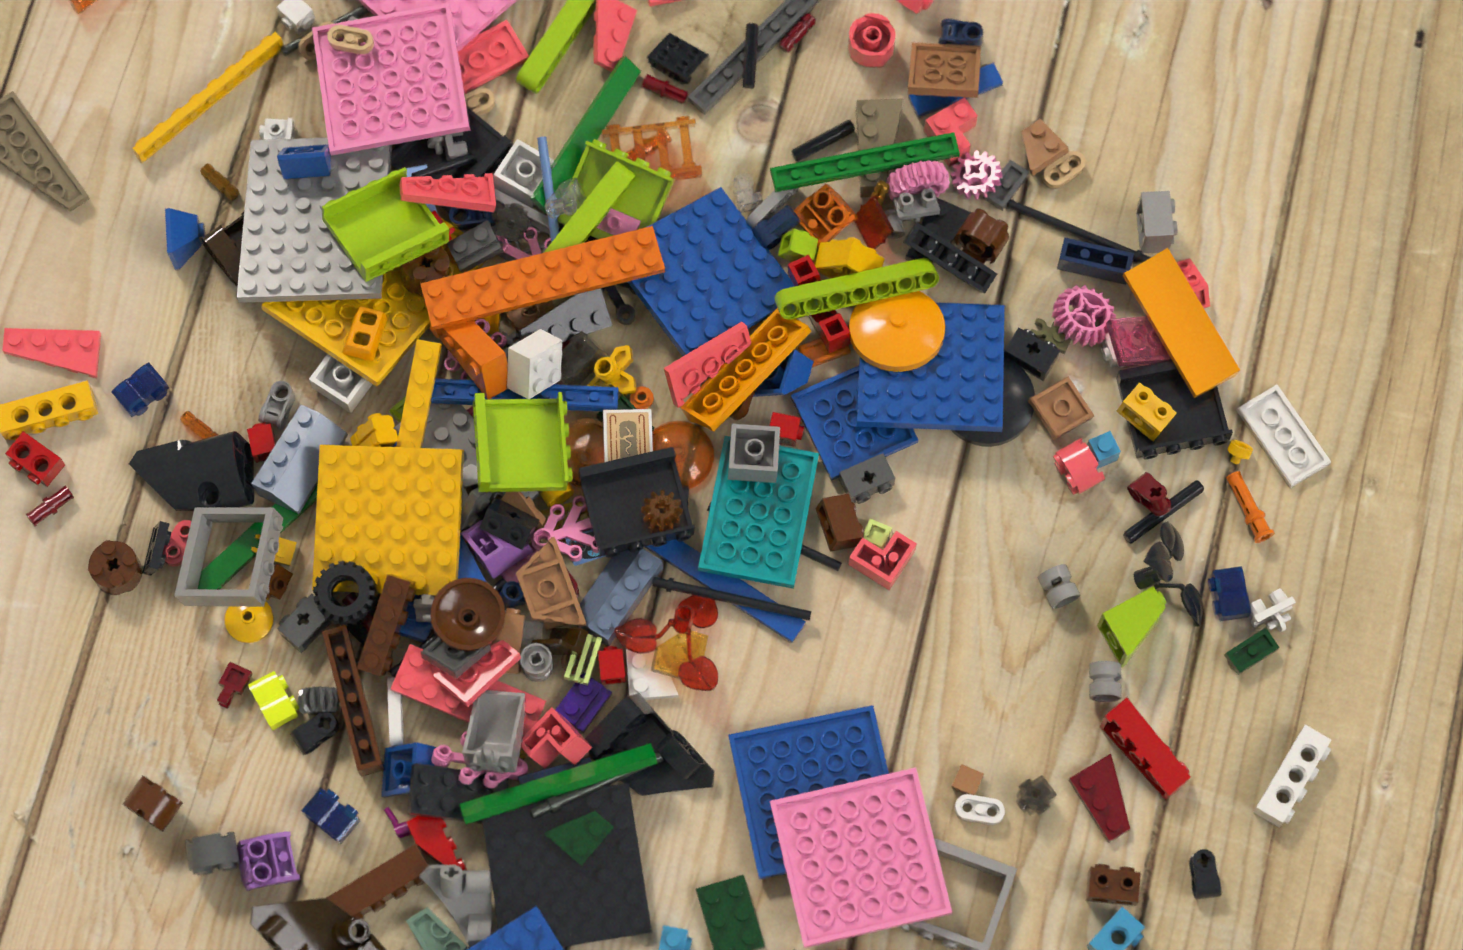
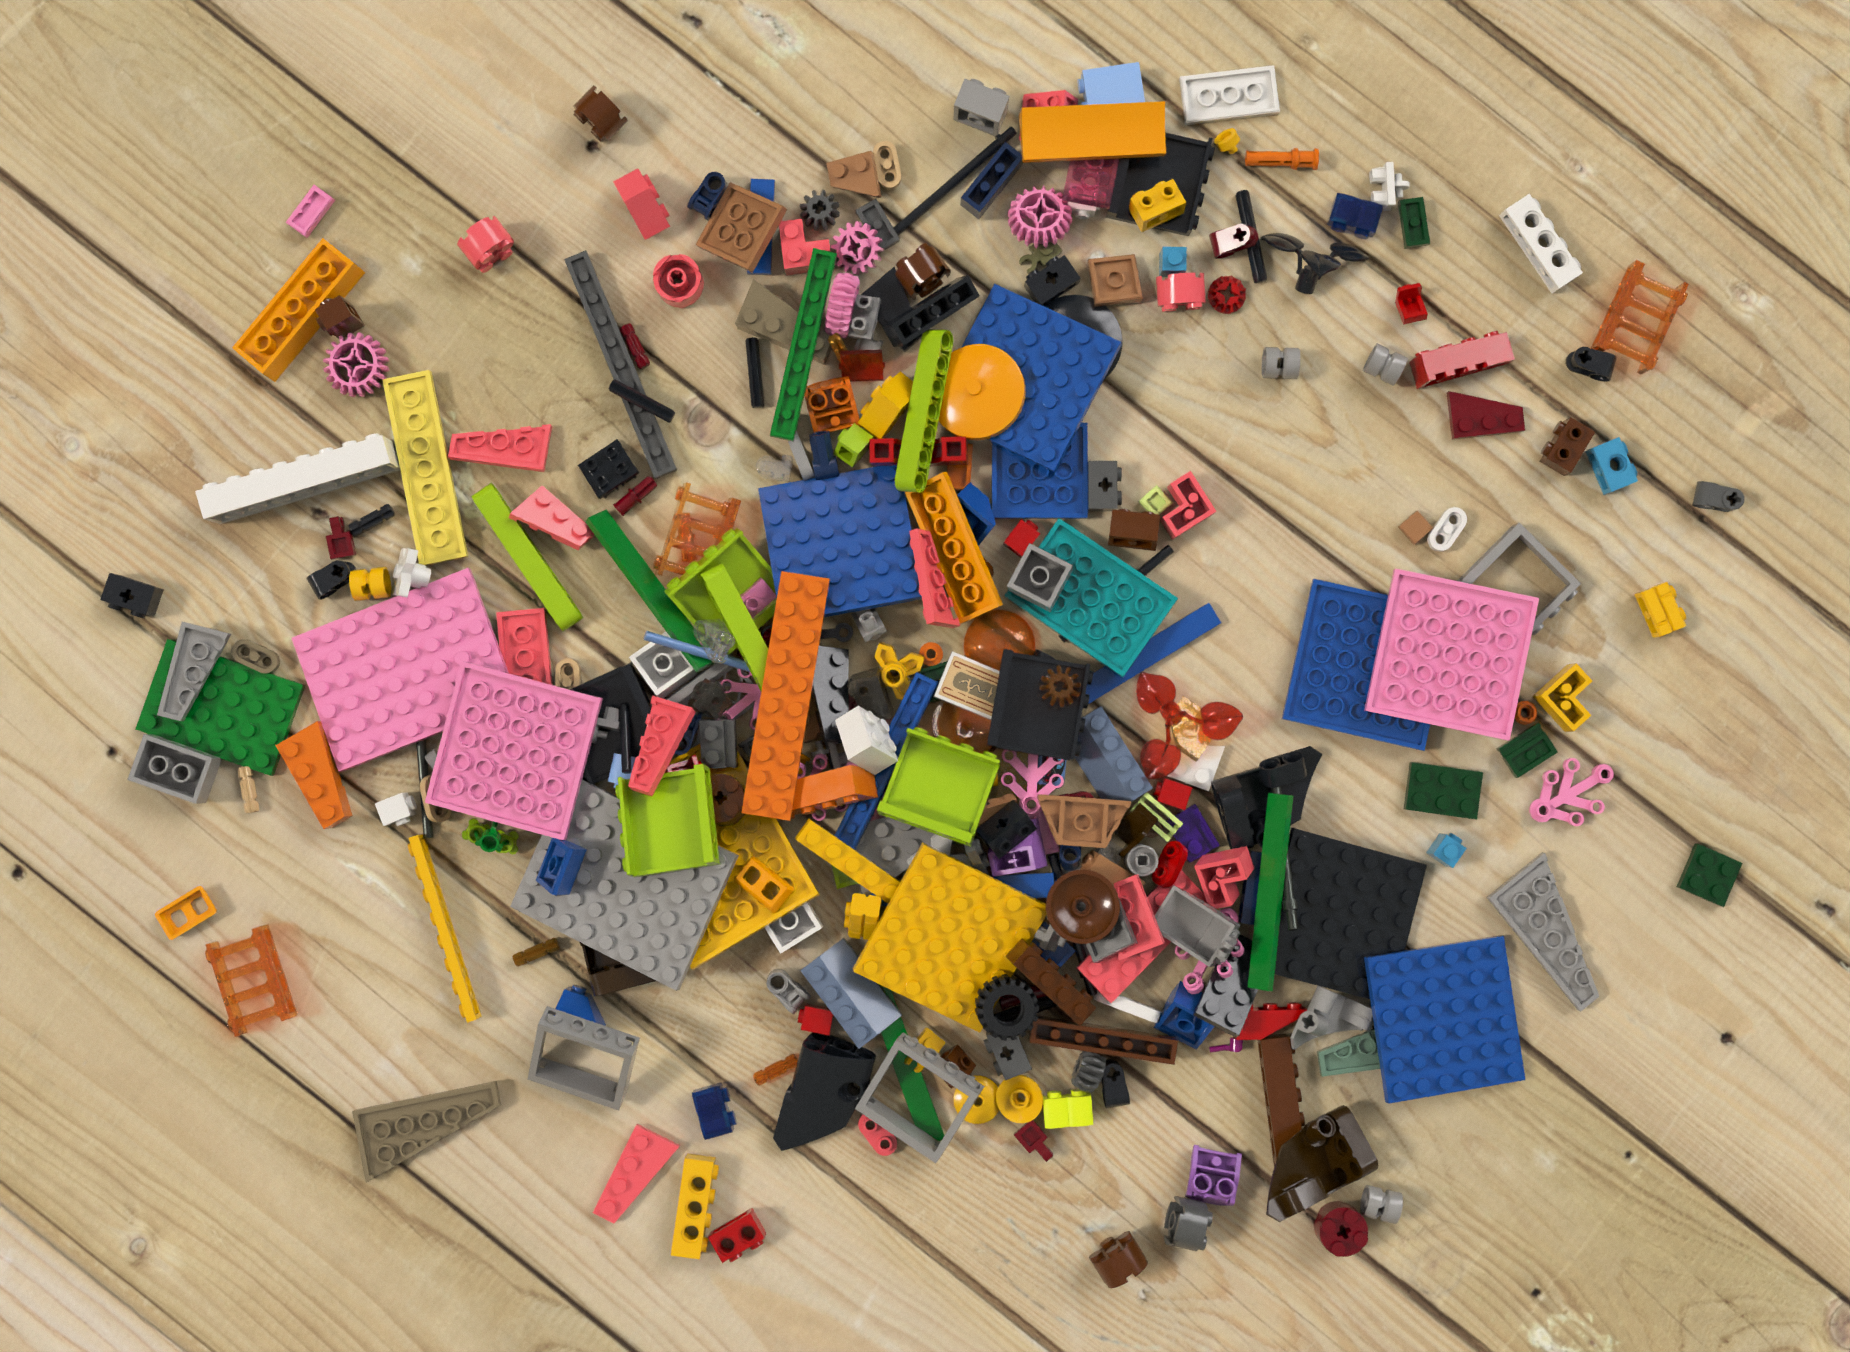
camera: 65 degrees left, 15 degrees up
(49, 505) = (788, 1239): dark red pin -> none
(110, 555) = (875, 1217): reddish brown brick -> none
(116, 253) = (574, 1080): none -> light grey window
(154, 557) = (883, 1163): black plate -> none
(261, 645) = (1014, 1108): none -> yellow dish
(285, 129) = (514, 868): white brick -> none
(304, 93) = (489, 838): none -> plant
(331, 815) = (1196, 1102): clear blue brick -> none
(352, 39) = (457, 770): tan plate -> none
(544, 690) = (1170, 863): none -> red plate
(581, 836) = (1324, 891): dark green wing -> none
(643, 330) = (869, 624): none -> light grey hips
(671, 585) = (1122, 707): black bar -> none
(986, 132) = (813, 204): none -> dark grey gear
(1038, 788) = (1460, 475): clear smoke brick -> none
(1093, 522) = (1217, 299): none -> red gear
(1131, 622) = (1348, 314): lime slope -> none
(1174, 680) = (1410, 303): none -> red bracket
(1236, 327) = (1112, 84): none -> light blue brick
(1282, 877) = (1624, 298): none -> clear orange fence

